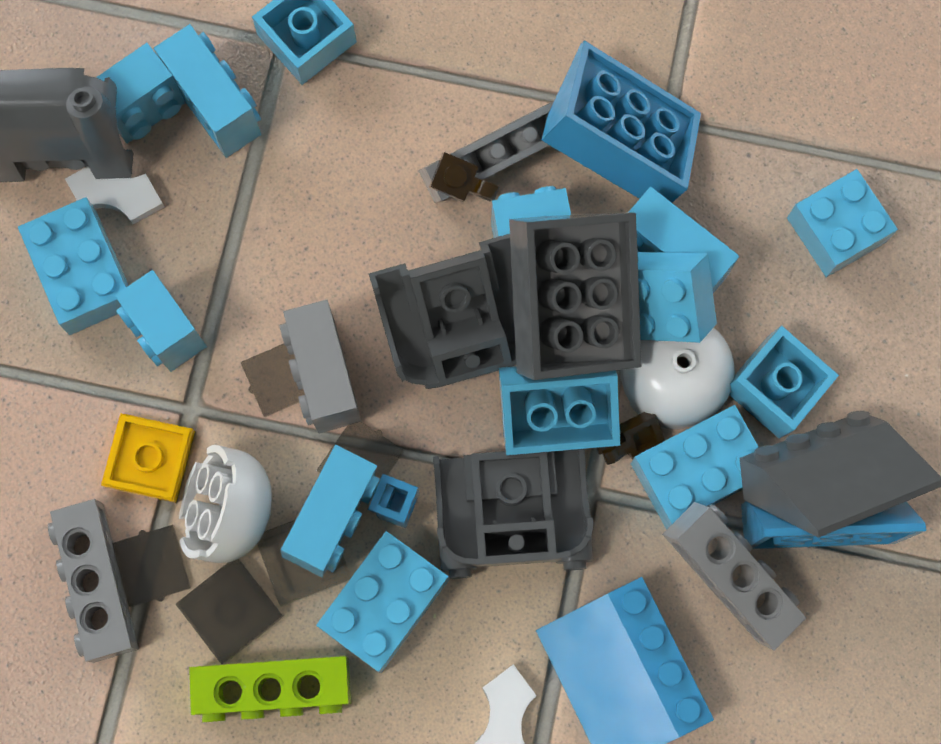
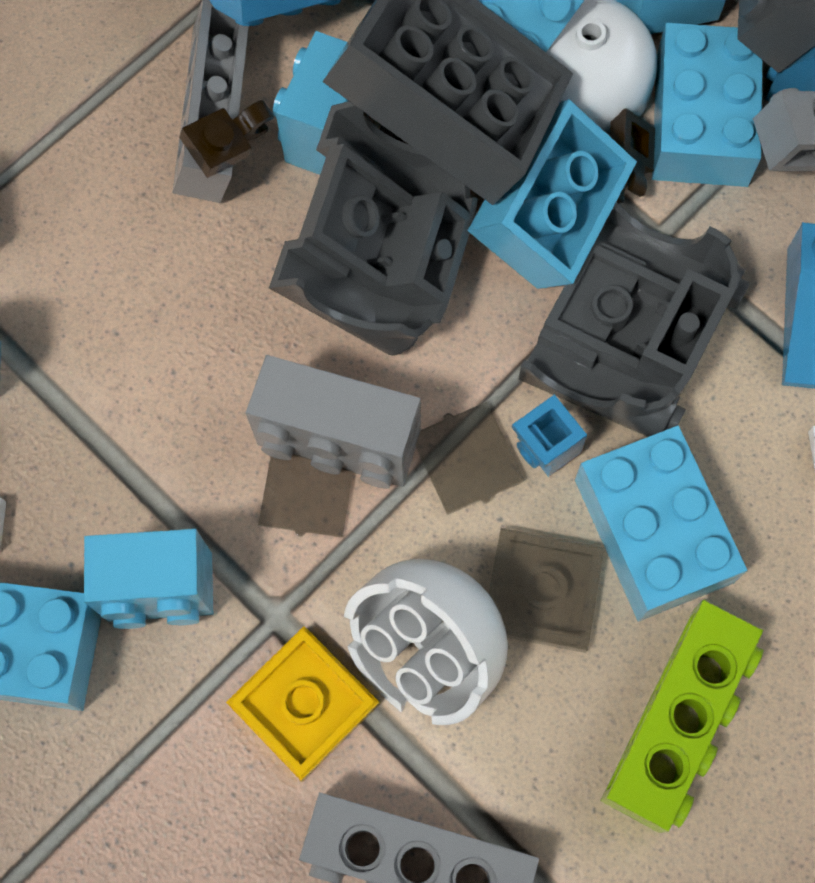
camera: 55 degrees left, 5 degrees down
(151, 566) = (440, 779): clear smoke piece -> none
(229, 610) = (556, 715): clear smoke tile -> none
(330, 512) = (521, 510): medium azure brick -> none

